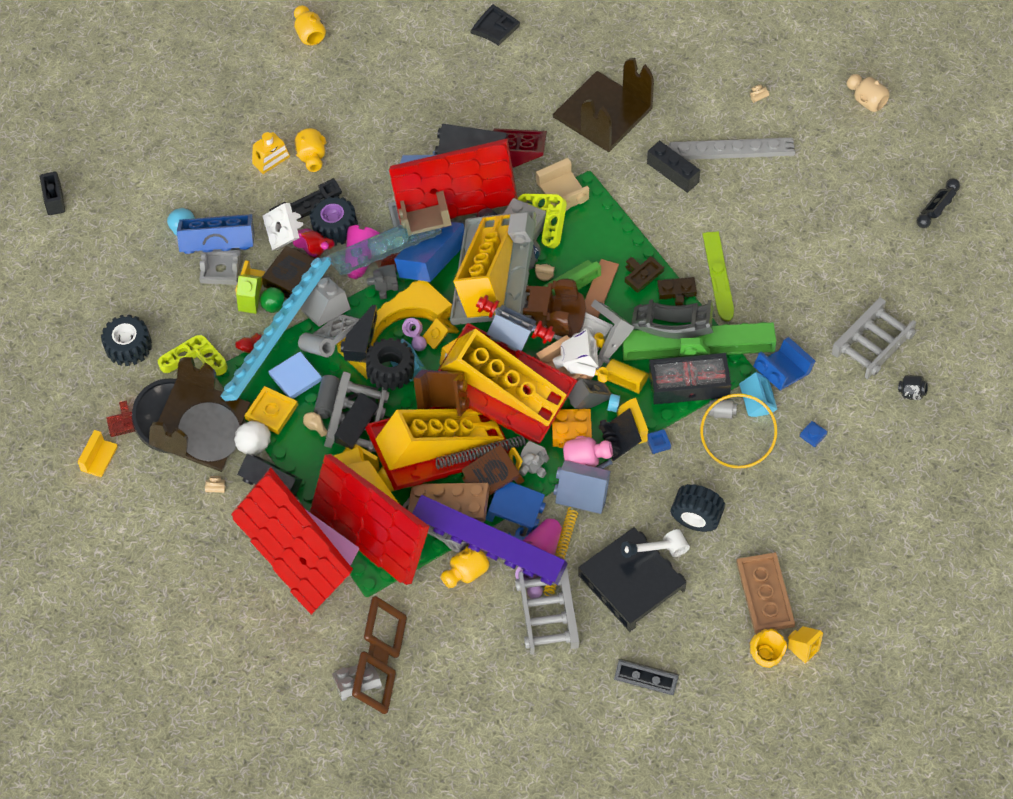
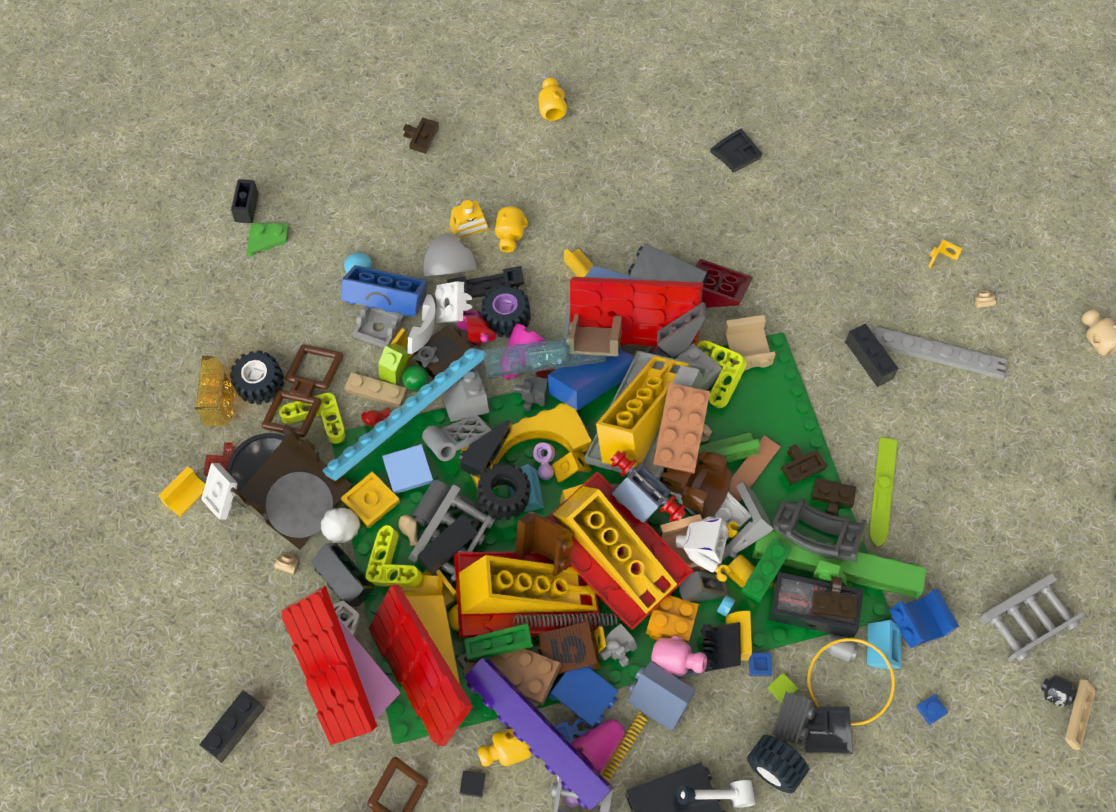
camera: 15 degrees right, 5 degrees up
(83, 219) = (266, 236): none -> bright green wing
(94, 363) = (214, 393): none -> clear yellow brick
(132, 440) = (217, 491): none -> white plate
(172, 337) = (303, 389): none -> reddish brown bar
(196, 90) = (422, 135): none -> dark brown plate
(220, 623) = (232, 726): none -> black brick
(238, 321) = (375, 389): none -> tan plate
(262, 188) = (447, 256): none -> light grey brick
(266, 258) = (420, 336): none -> white slope
(276, 281) = (427, 350): none -> dark grey plate
(305, 457) = (384, 566): none -> neon yellow beam
(382, 161) = (577, 262): none -> yellow panel
(430, 483) = (498, 642): none -> green plate
(445, 606) = (472, 784): none -> black tile
(499, 191) = (680, 333): none -> dark grey slope
(528, 265) = (681, 428): none -> nougat plate
(605, 109) = (821, 272): dark brown piece -> none
(638, 362) = (766, 570): none -> green plate
(683, 455) = (780, 686): none -> lime tile
(700, 468) = (793, 718): none -> dark grey brick
(704, 369) = (833, 602): none -> dark brown plate
(707, 60) = (942, 249): none -> yellow bracket
(732, 474) = (830, 731): none -> black plate
(935, 400) = (1080, 714): none -> tan tile

